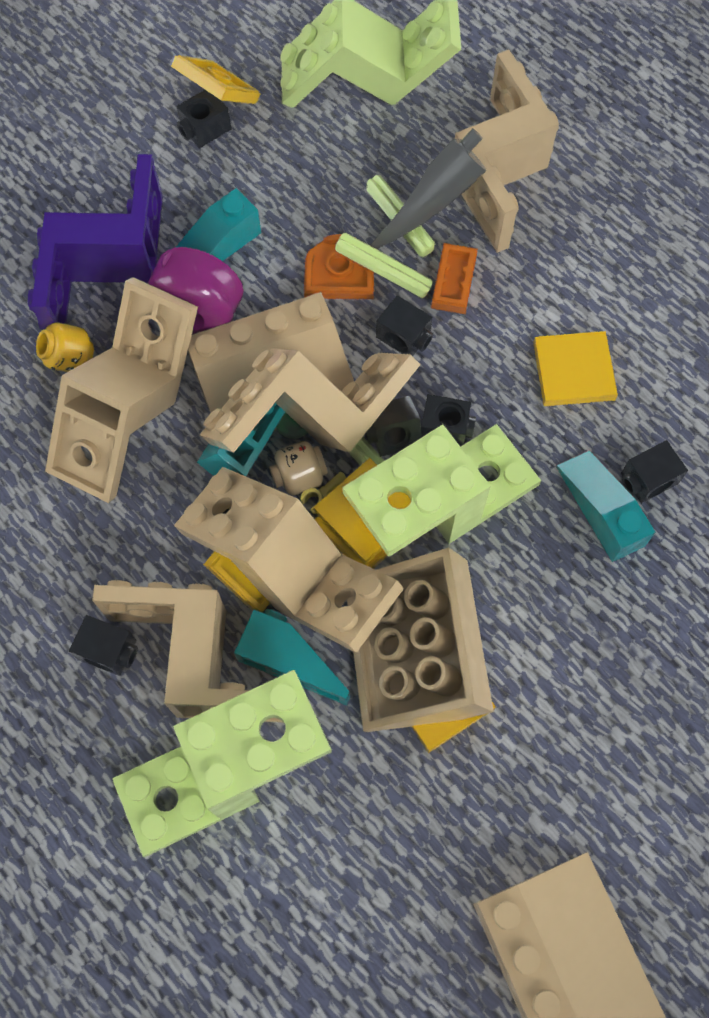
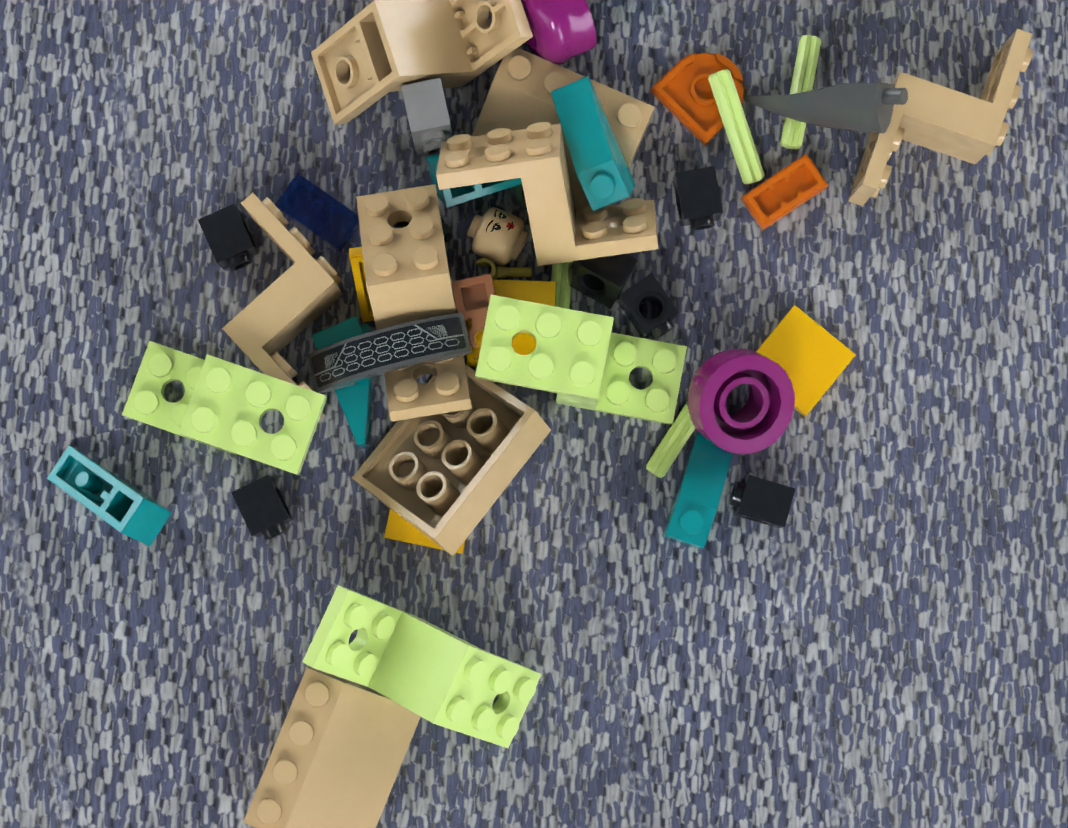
camera: 40 degrees right, 15 degrees up
(162, 564) = (318, 212): none -> clear blue plate
(171, 430) = (427, 115): none -> light grey brick
(191, 929) = (109, 496): none -> teal slope
(303, 605) = (389, 350): none -> slope
(320, 817) = (263, 507): none -> black brick
(326, 352) = (592, 144): none -> teal slope
(335, 518) = (473, 299): none -> nougat plate
(548, 472) = (671, 444): none -> yellowish green axle
(558, 813) = (422, 667): none -> yellowish green bracket
(588, 406) = (763, 415): none -> magenta piece

